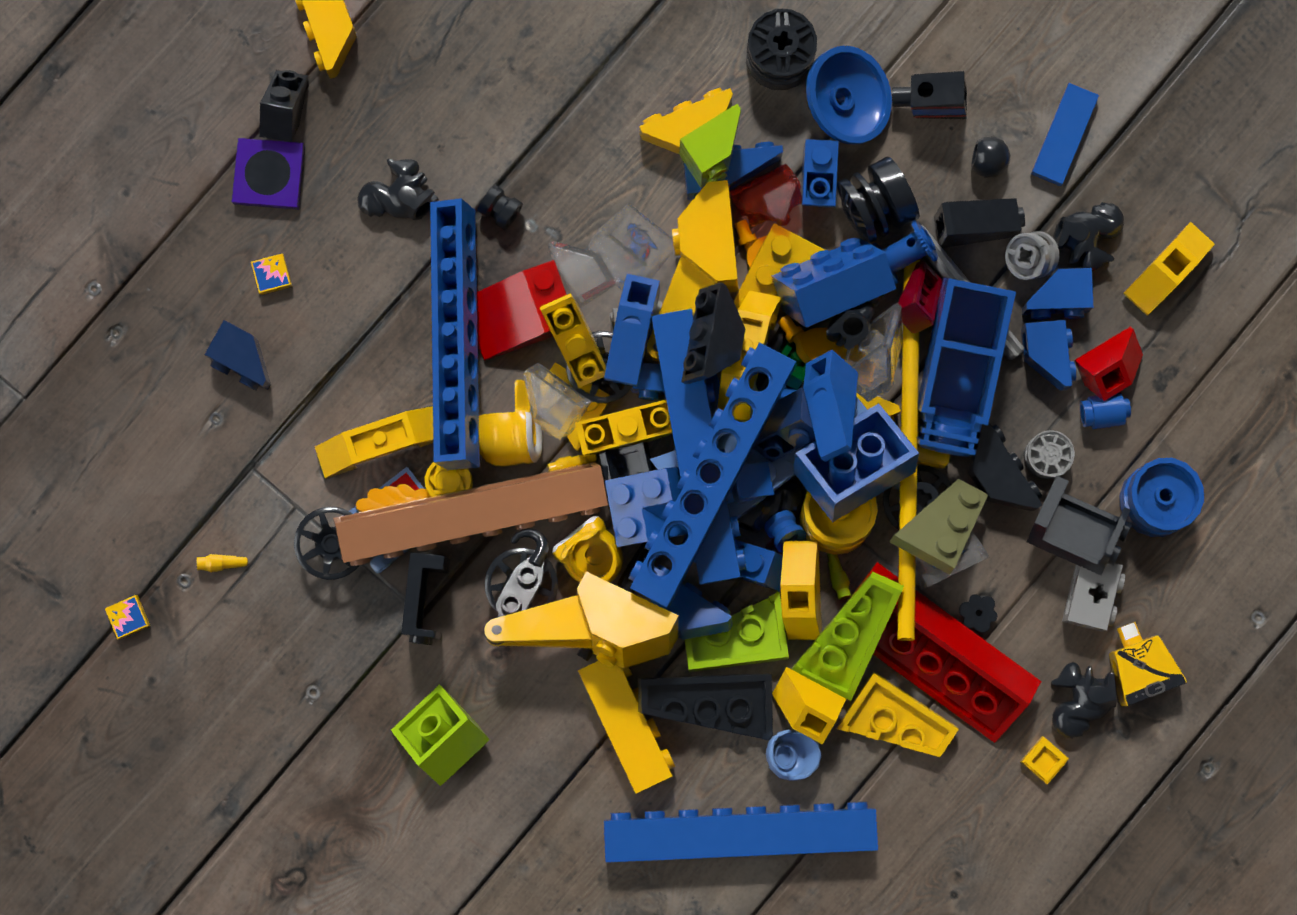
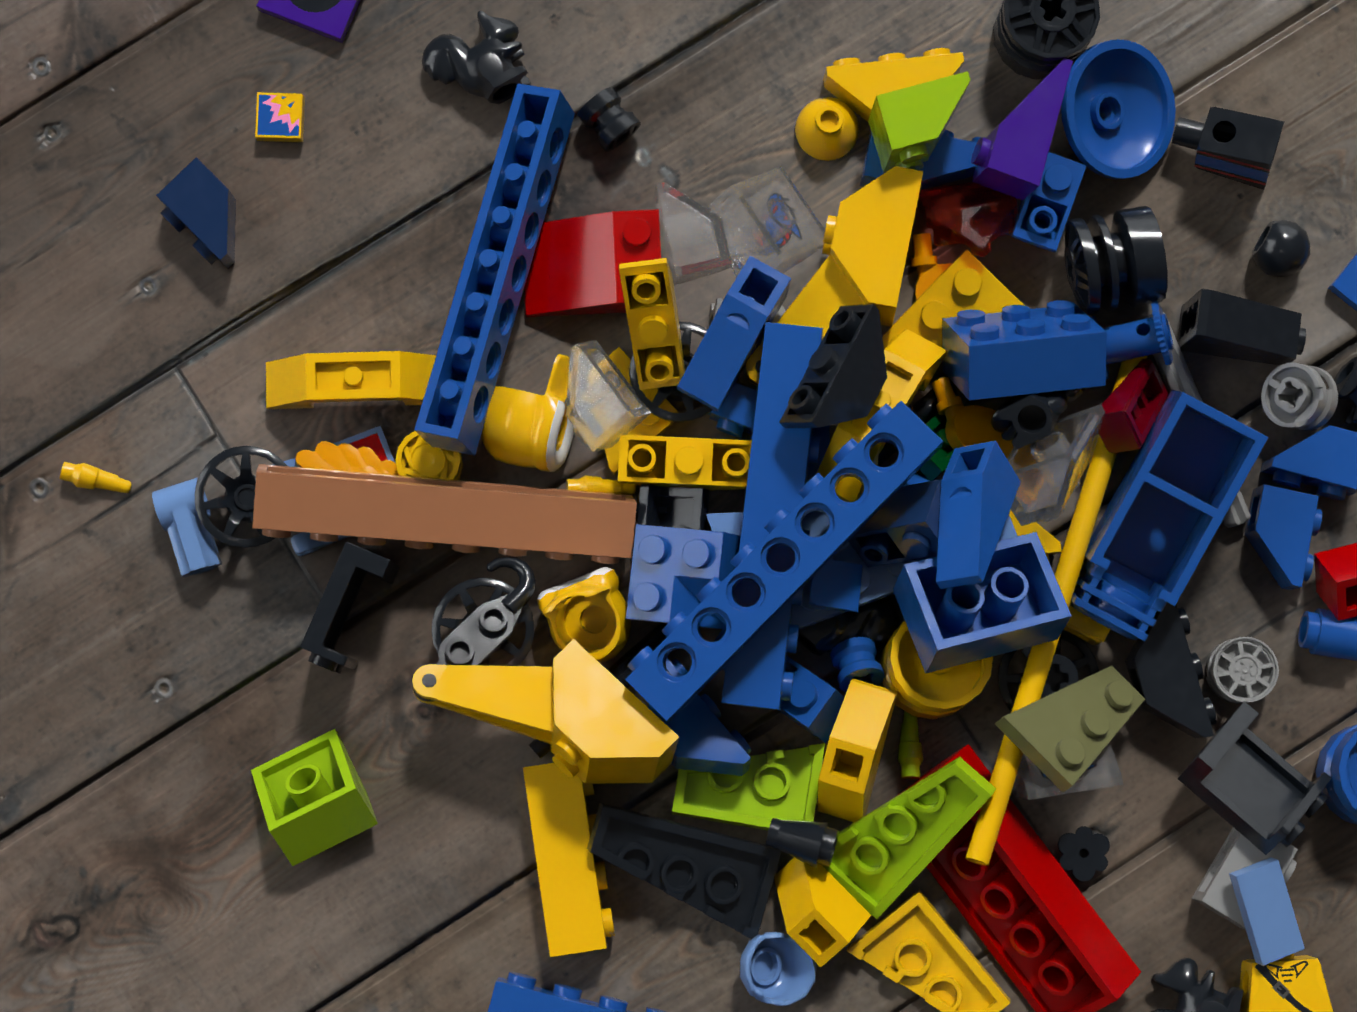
camera: 10 degrees right, 0 degrees up
(300, 584) = (190, 540): none -> medium blue piece
(652, 168) = (827, 128): none -> yellow brick
(786, 661) = (804, 840): none -> black cone
(787, 144) = (1018, 148): none -> dark purple slope
(1113, 613) = (1266, 911): none -> medium blue tile

